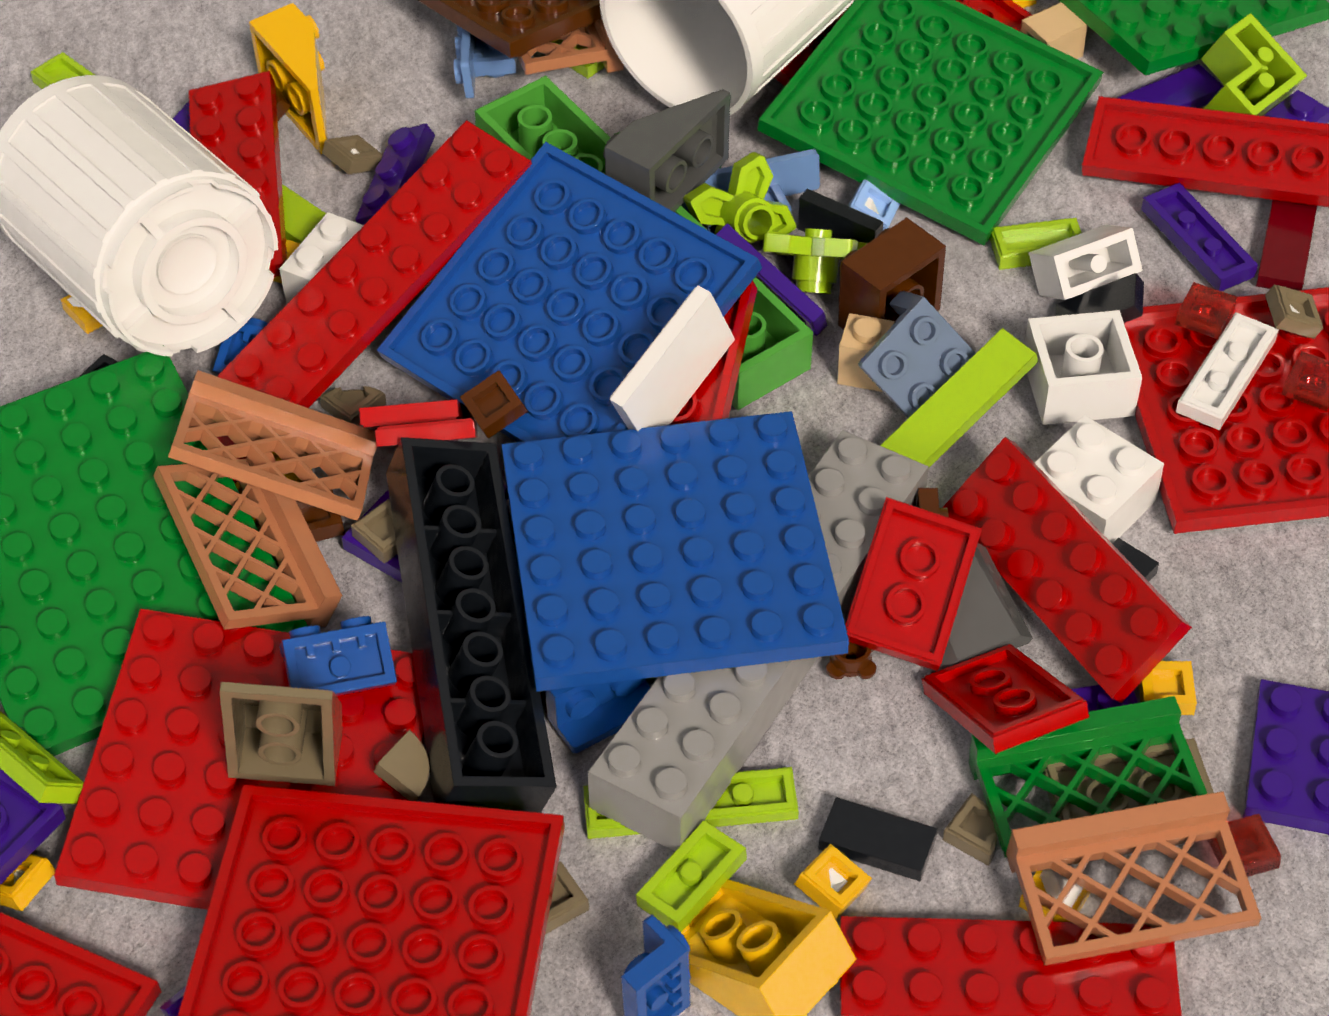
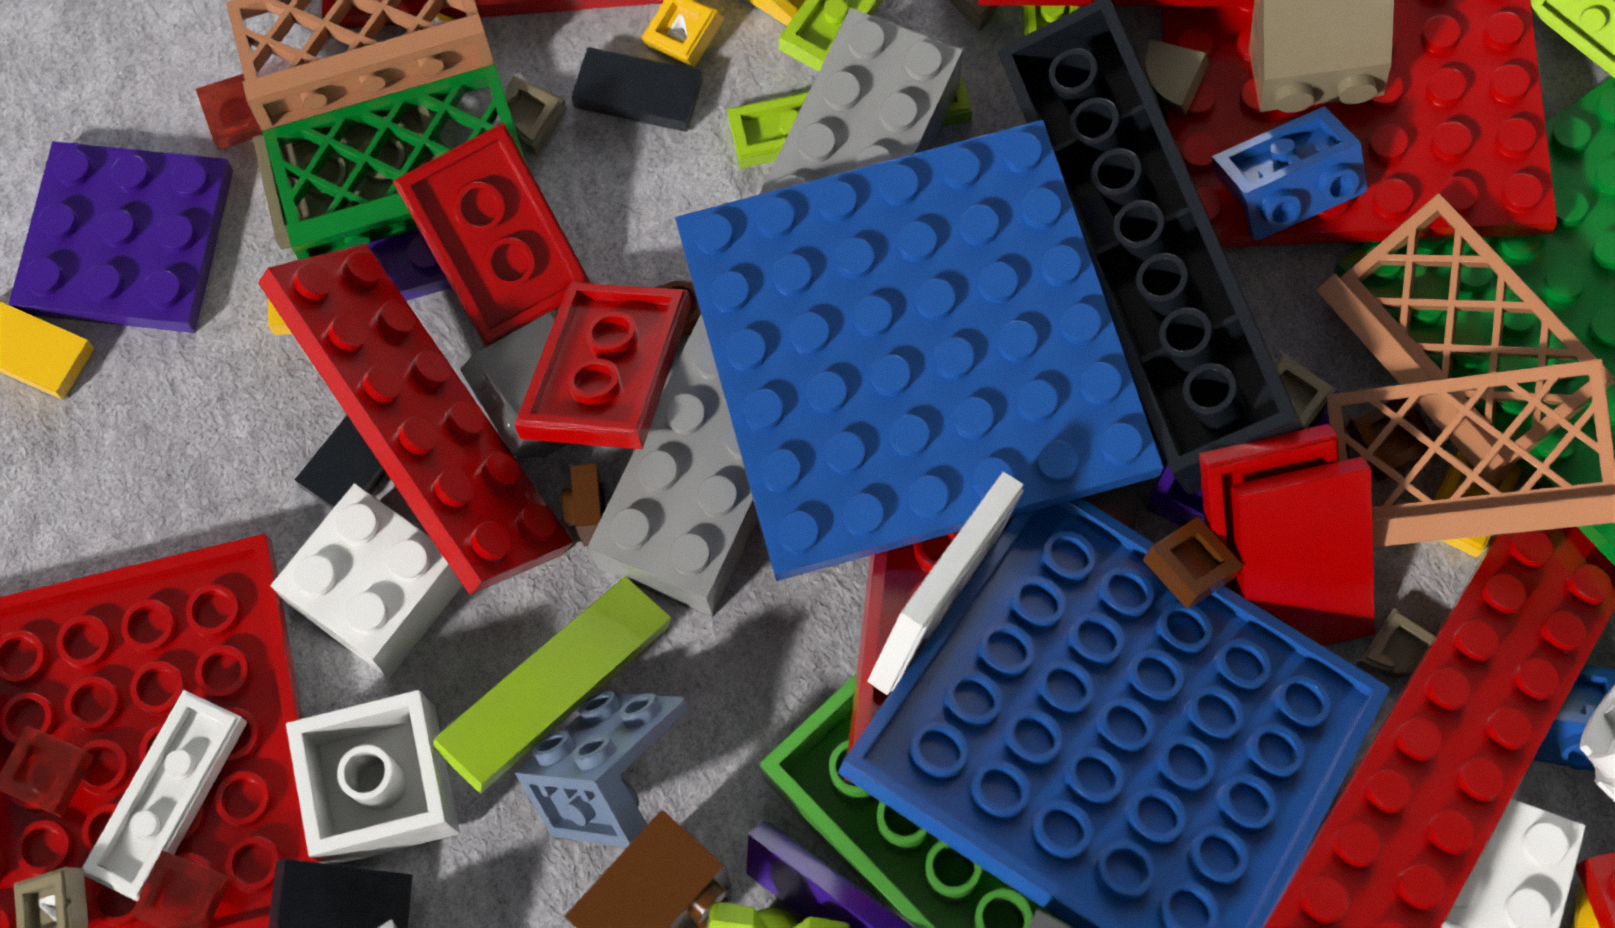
camera: 175 degrees right, 20 degrees up
(857, 339) = (685, 787): tan brick -> none

